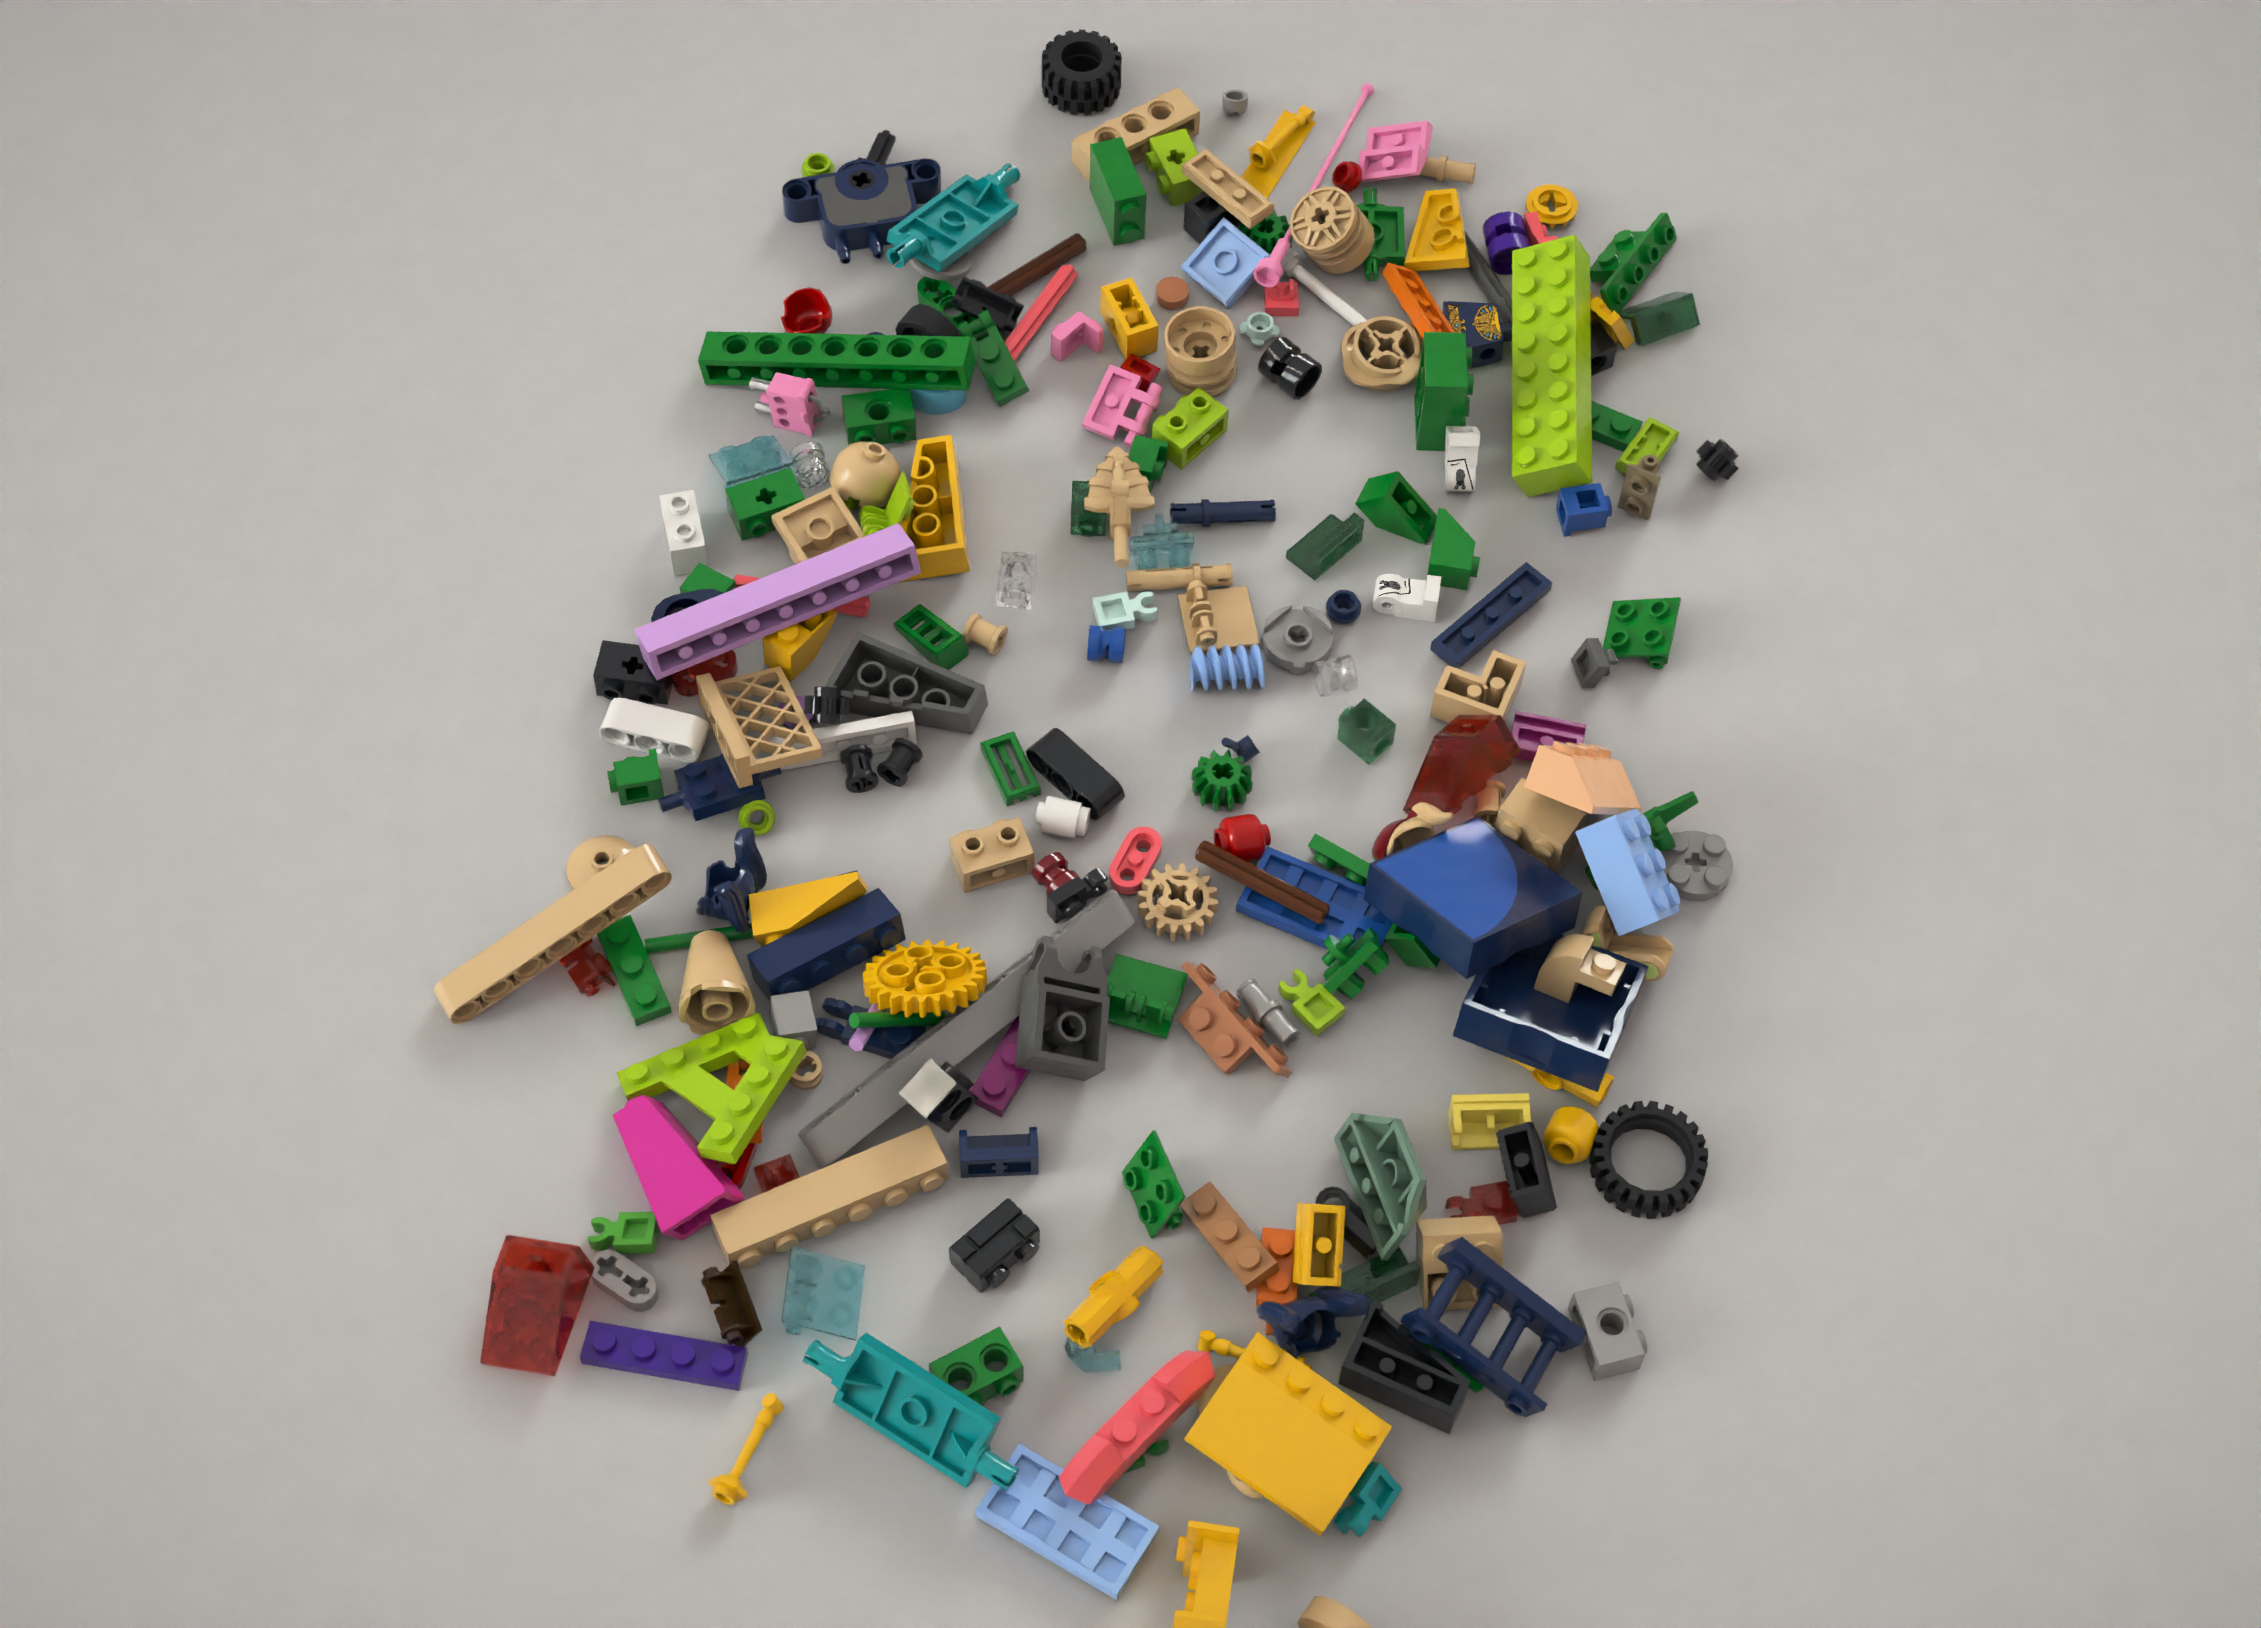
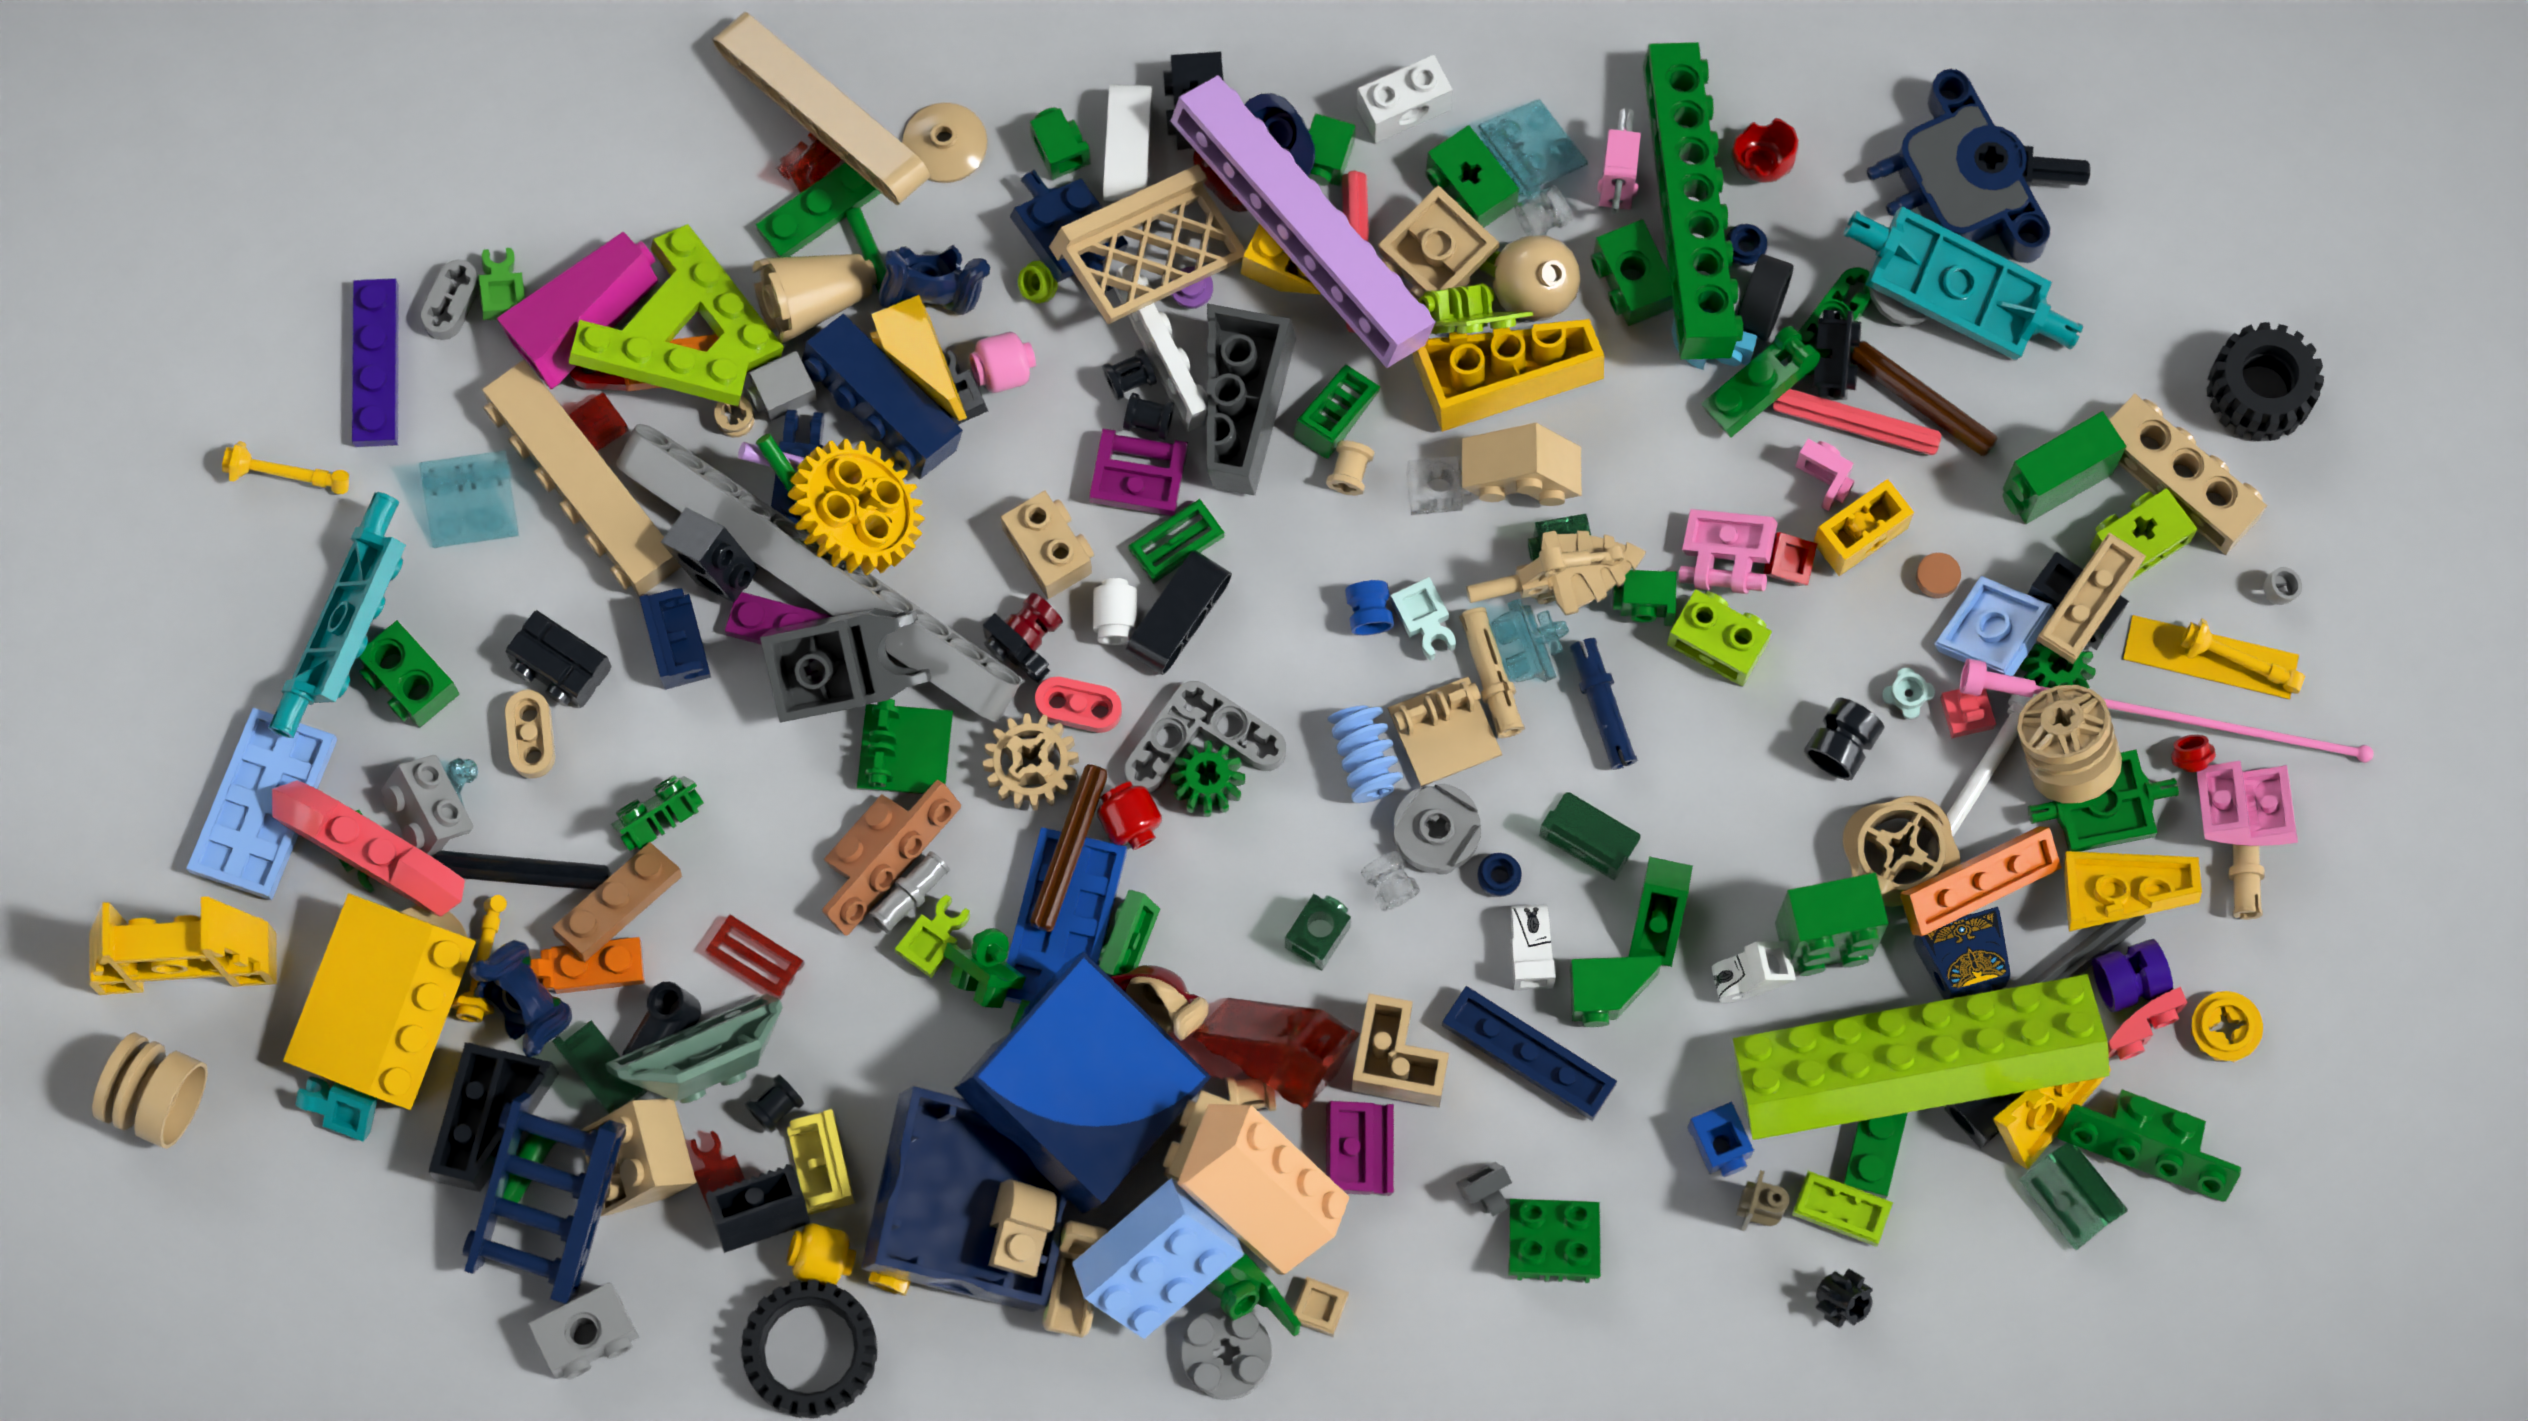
camera: 80 degrees right, 15 degrees up
(533, 1304) = (395, 217): clear red slope -> none
(736, 1311) = (450, 404): dark brown hinge -> none
(817, 164) = (2016, 95): lime plate -> none
(822, 853) = (1002, 362): none -> bright pink head
(827, 705) = (1184, 312): black gear -> none
(955, 785) = (1136, 484): none -> magenta plate
(1020, 513) = (1522, 461): none -> tan brick
(1057, 1279) = (529, 736): none -> tan plate
(1105, 1377) = (425, 805): none -> light grey bracket
(1113, 1296) = (516, 793): yellow piece -> none
(1171, 785) = (1191, 724): none -> light grey beam
(1181, 1305) = (524, 870): none -> black axle
(1200, 350) = (1826, 600): tan wheel -> none
(1243, 747) = (1260, 793): dark blue hand -> none
(1276, 1165) = (786, 977): none -> clear red tile
(1318, 1244) = (605, 991): yellow brick -> none
(1432, 1147) = (774, 1103): none -> black bush
(1664, 790) = (1320, 1306): none -> tan tile

